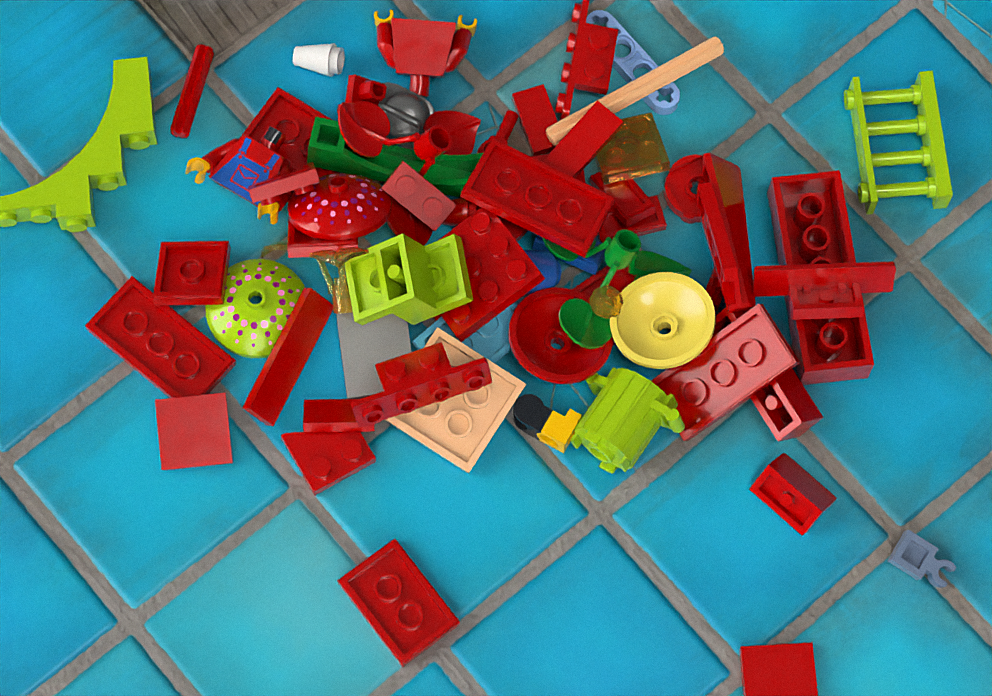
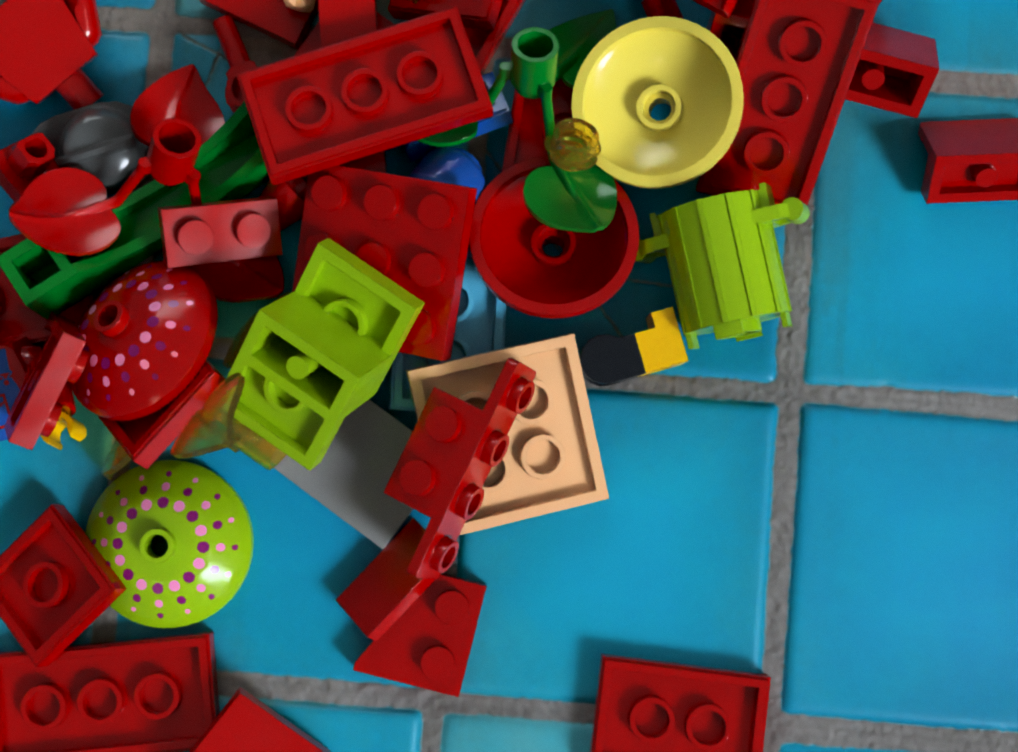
camera: 45 degrees left, 15 degrees up
(288, 357) = (266, 570): red tile -> none

